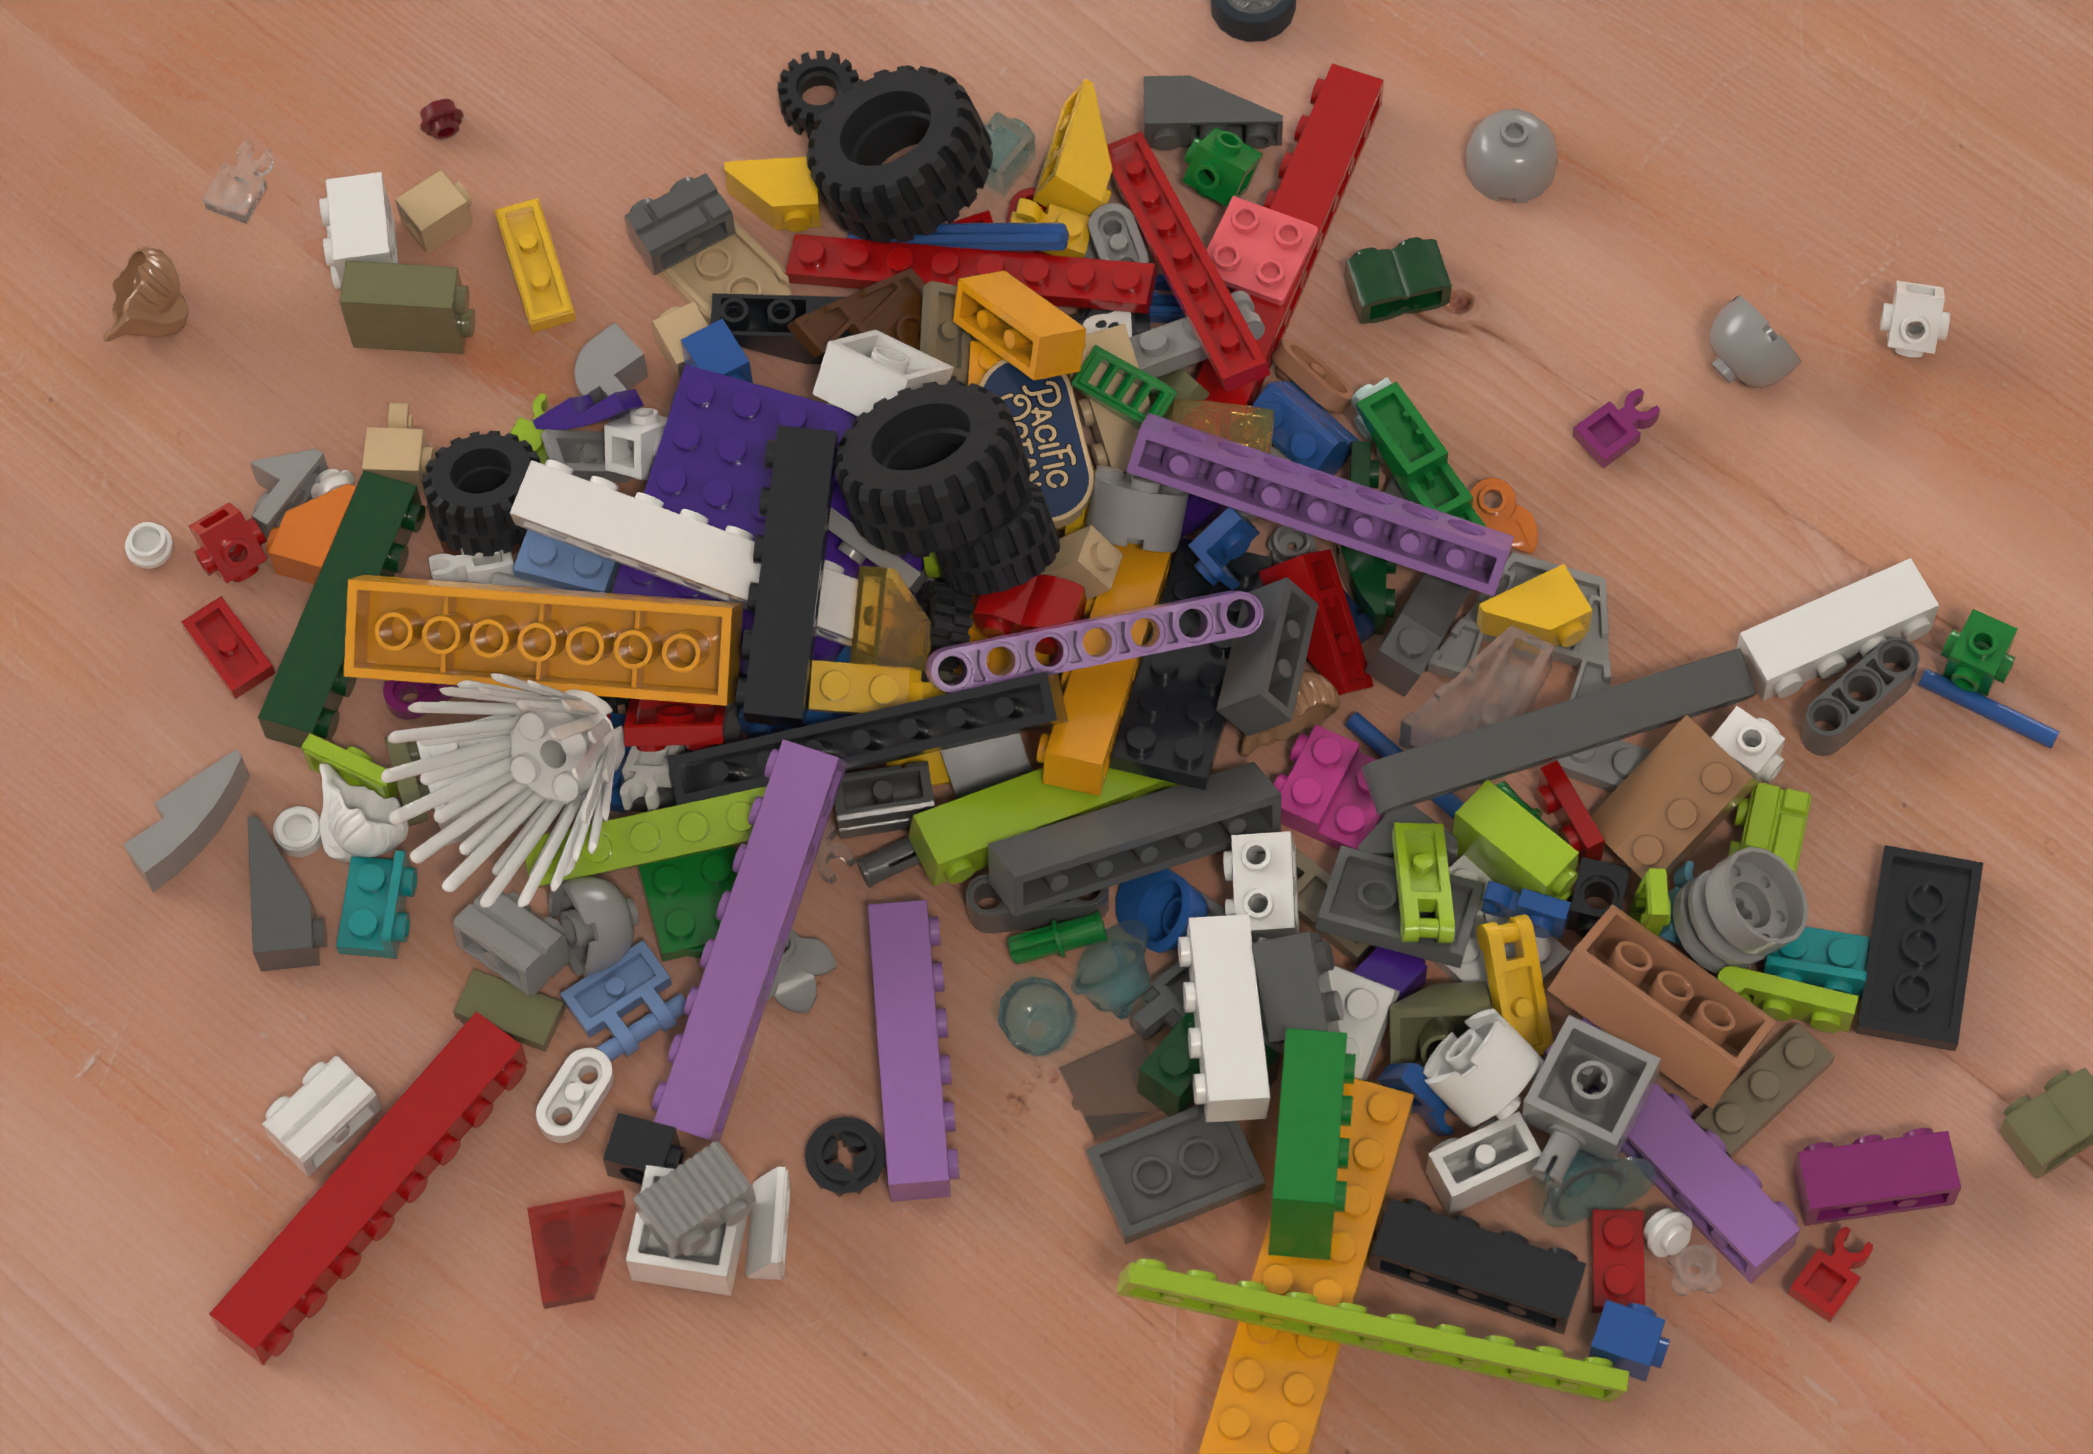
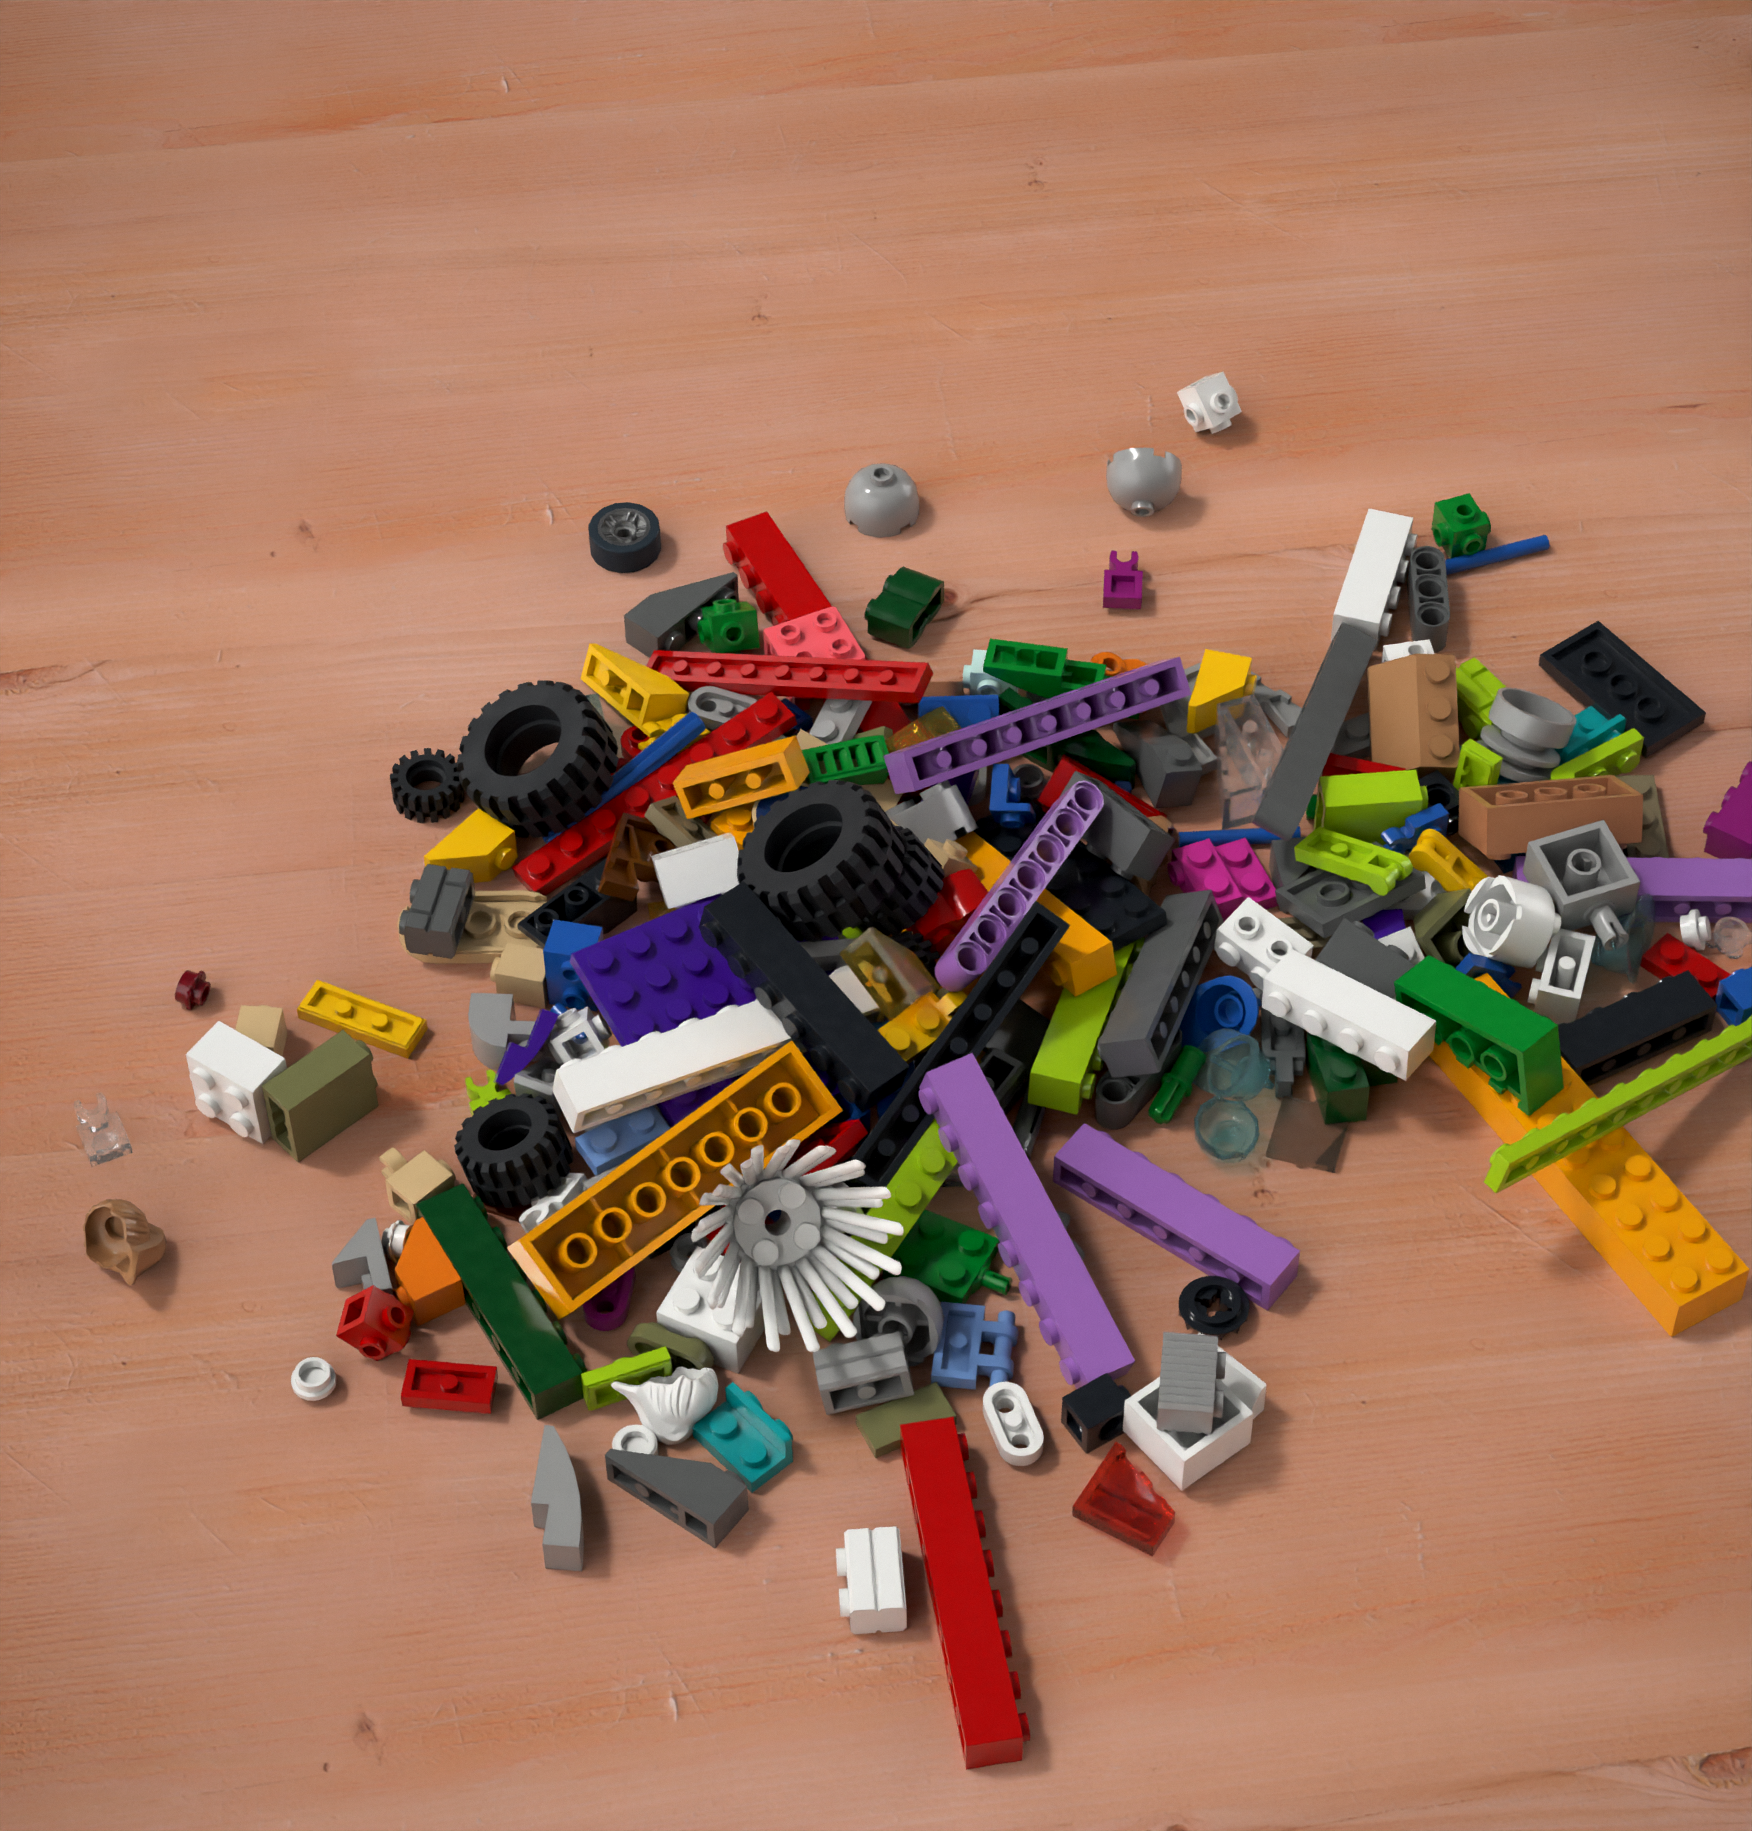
camera: 50 degrees left, 15 degrees down
(1173, 1171) = (1404, 1139): dark grey plate -> none

